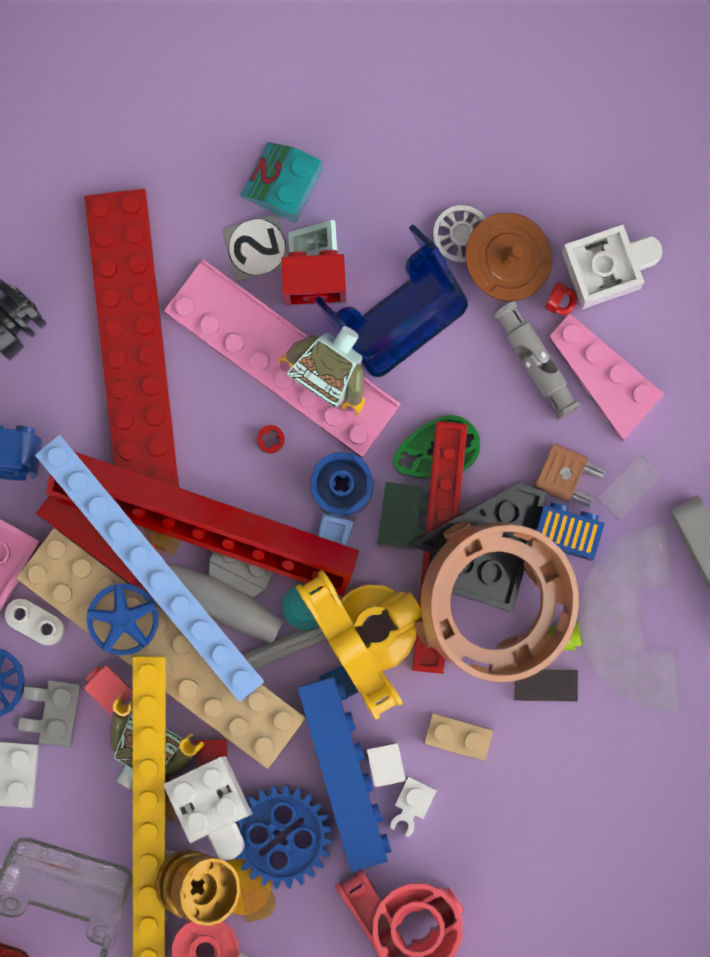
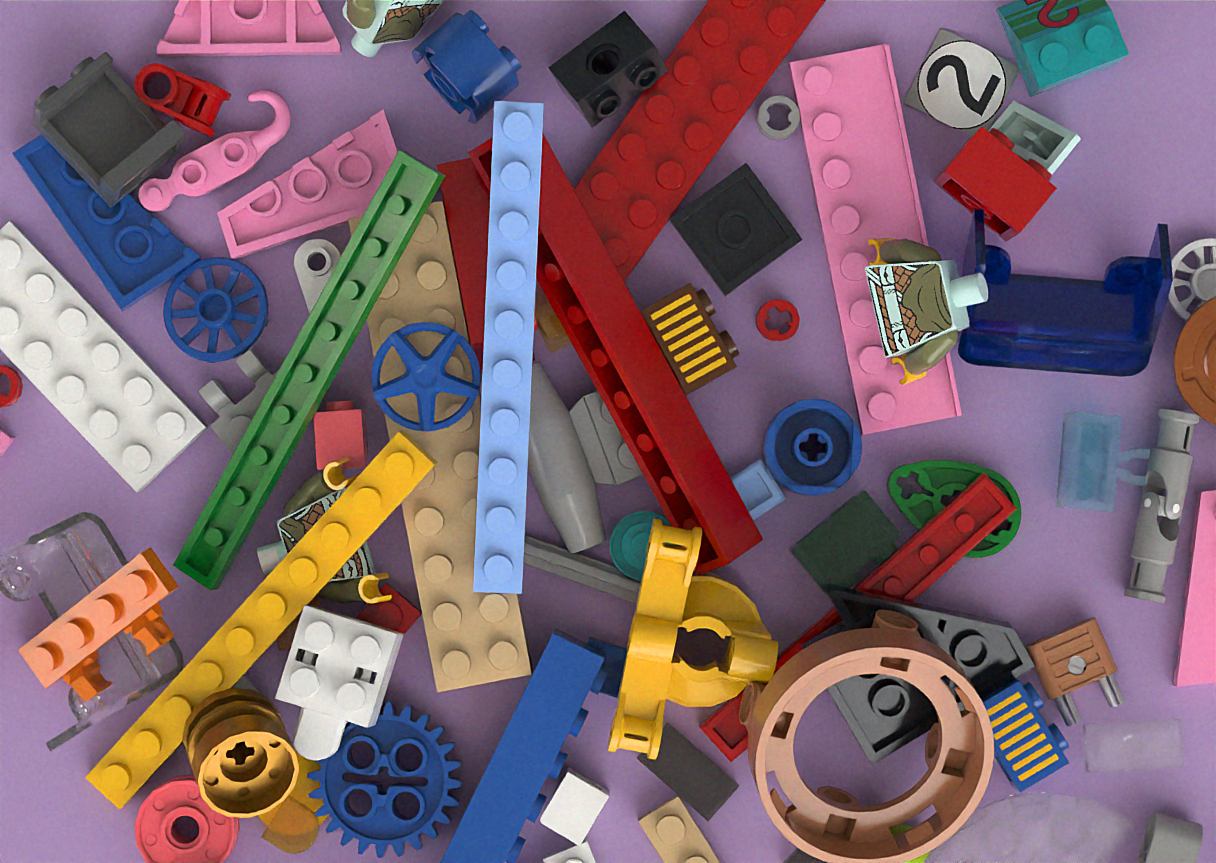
camera: 40 degrees right, 5 degrees up
(62, 670) = (309, 369): none -> green plate
(72, 866) = (120, 603): none -> orange hinge
(78, 392) = (608, 69): none -> black brick
(189, 336) = (763, 117): none -> light grey bush
(210, 414) = (735, 229): none -> black plate
(236, 486) = (689, 337): none -> reddish brown brick
(427, 697) = (690, 773): none -> clear smoke tile
(482, 369) = (1091, 461): none -> clear light blue brick

